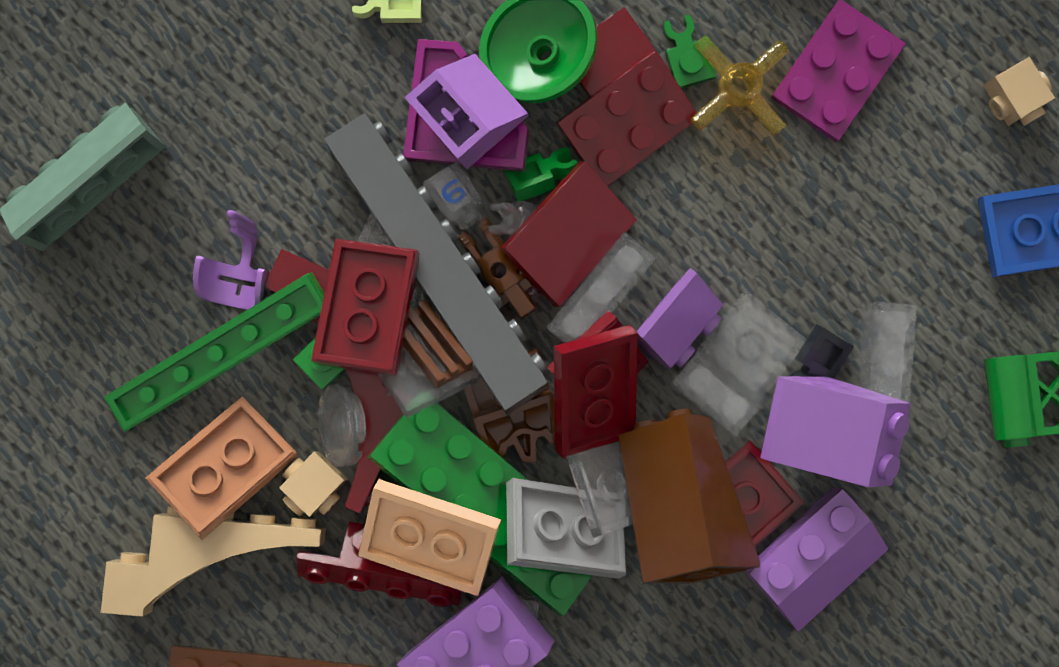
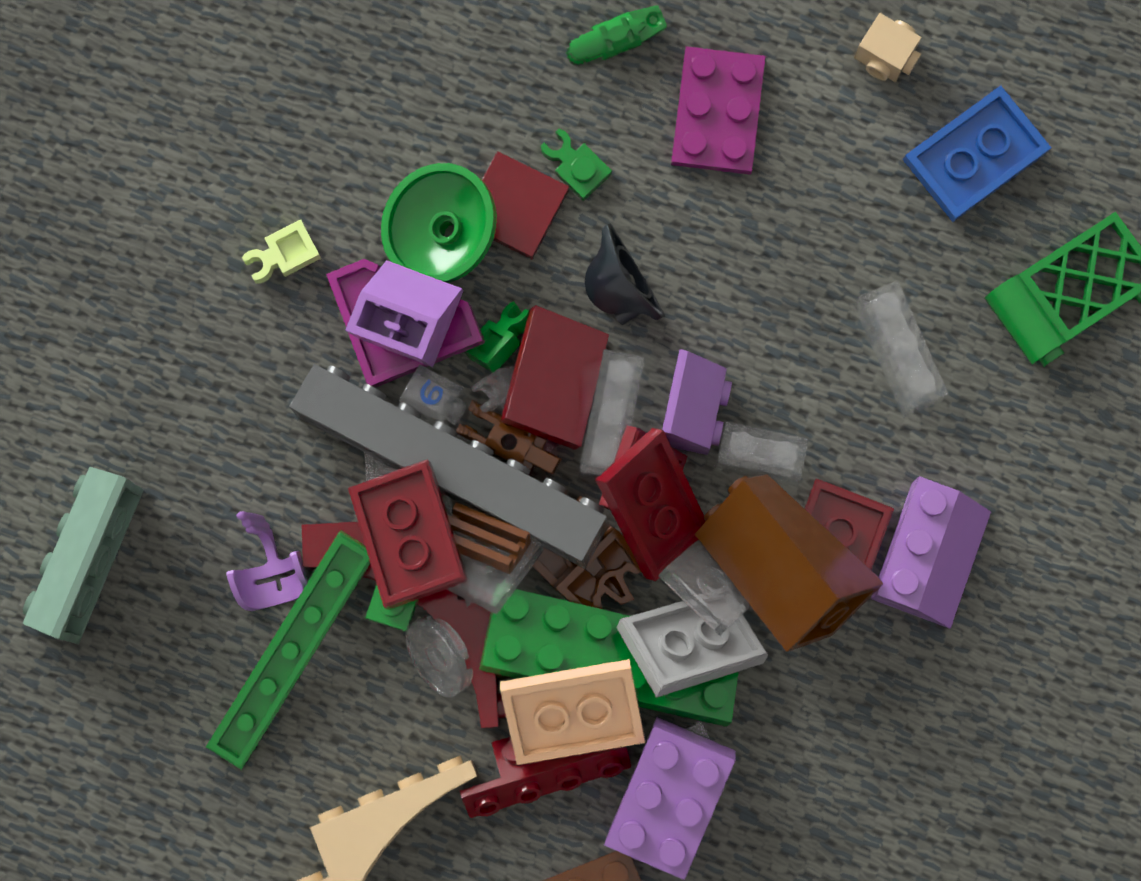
camera: 20 degrees left, 5 degrees down
(221, 467) = (349, 752): nougat tile -> none
(312, 485) = (440, 726): tan brick -> none
(628, 118) = (552, 248): dark red plate -> none
(661, 176) = (610, 284): none -> black hat
(729, 96) = (634, 182): clear yellow bar -> none
(752, 345) = (772, 392): clear tile -> none
(822, 354) = (839, 369): black plate -> none
(836, 430) = (884, 426): medium lavender slope -> none

